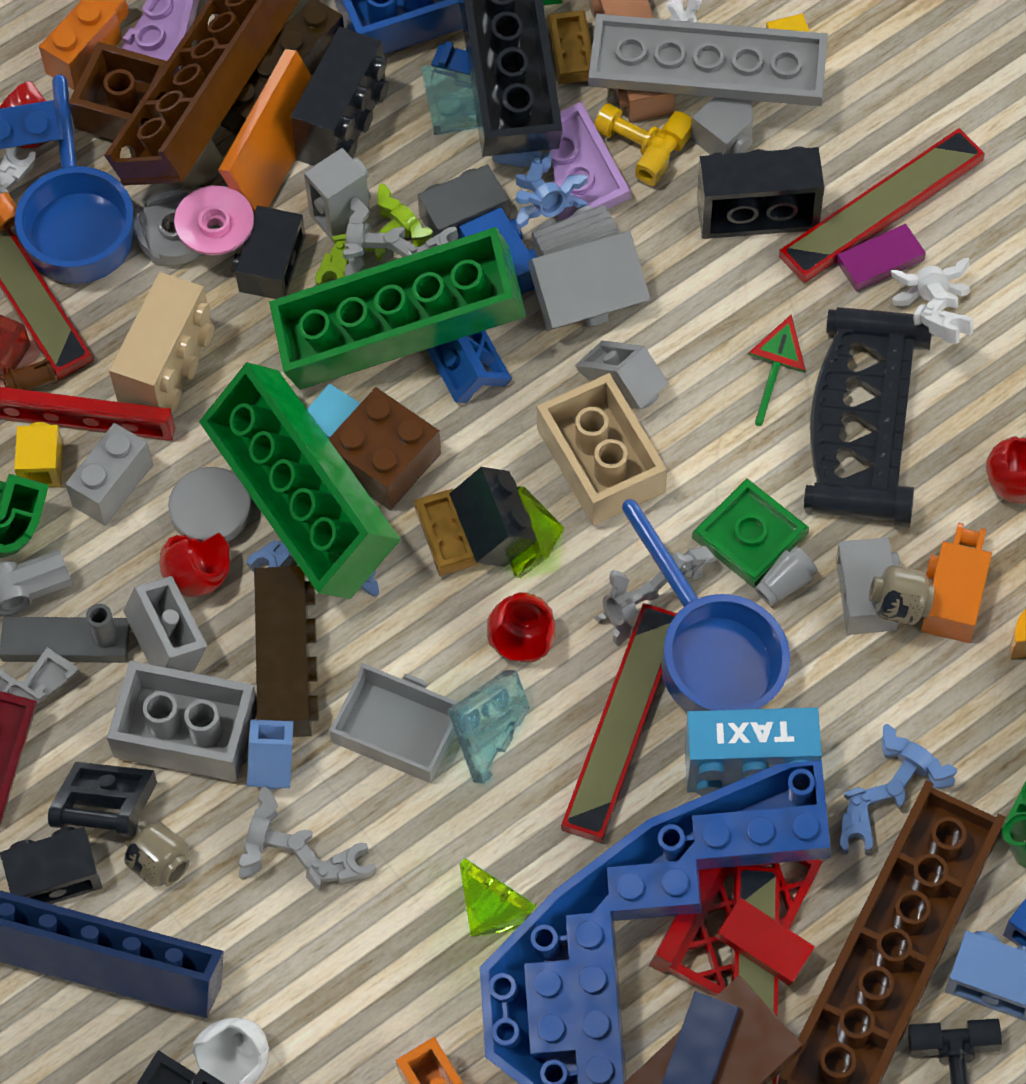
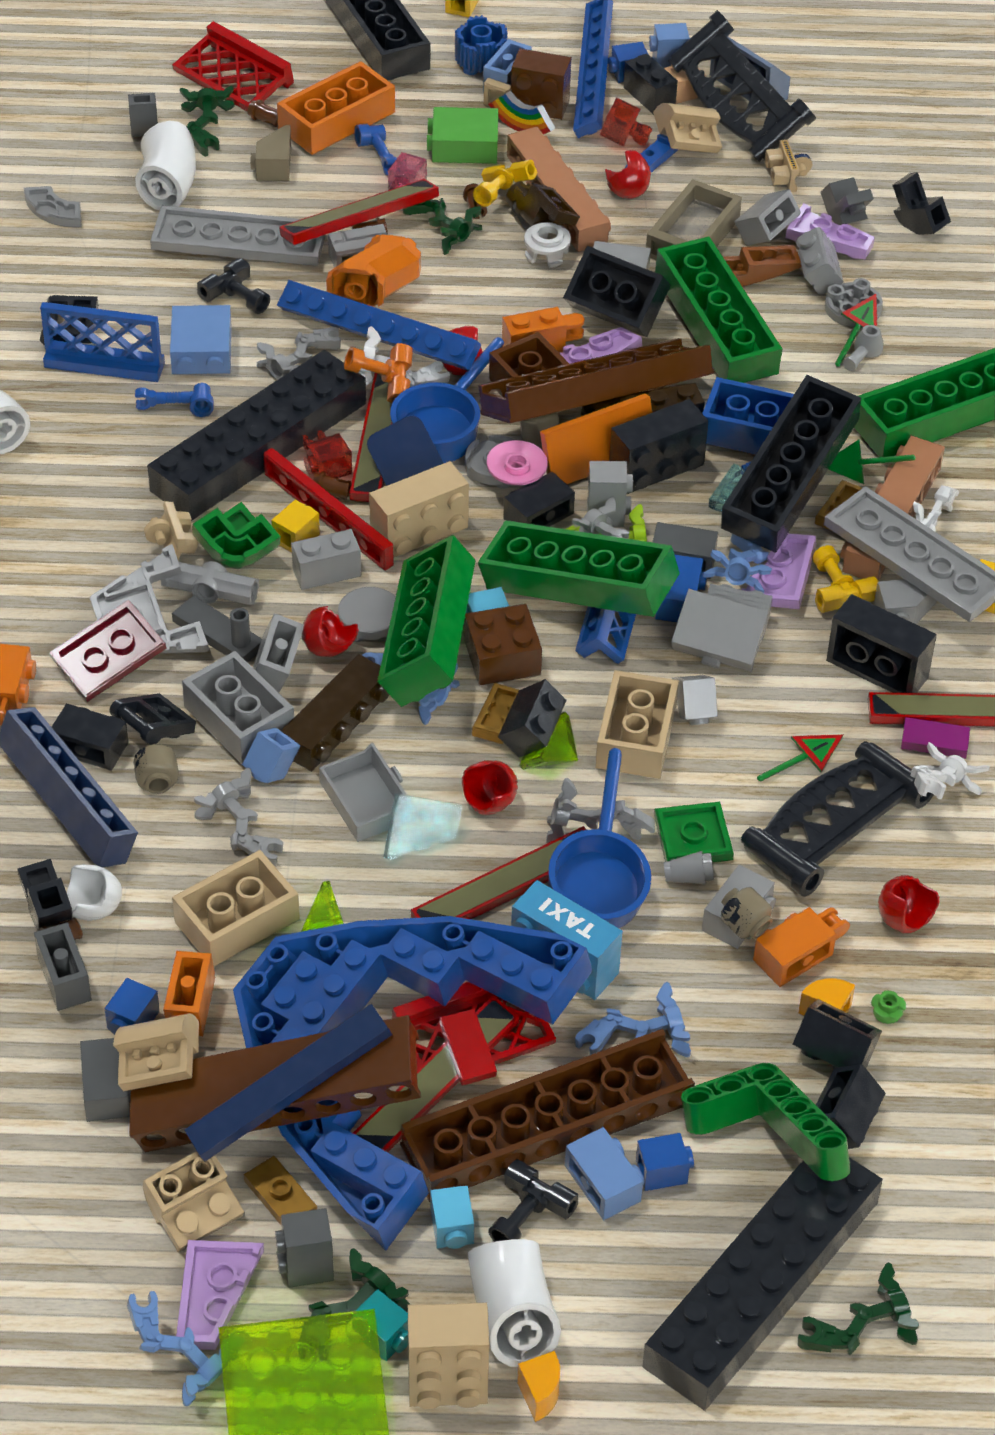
camera: 35 degrees right, 15 degrees down
(88, 291) = (403, 450): none -> dark blue piece
(396, 959) = (236, 907): none -> tan brick

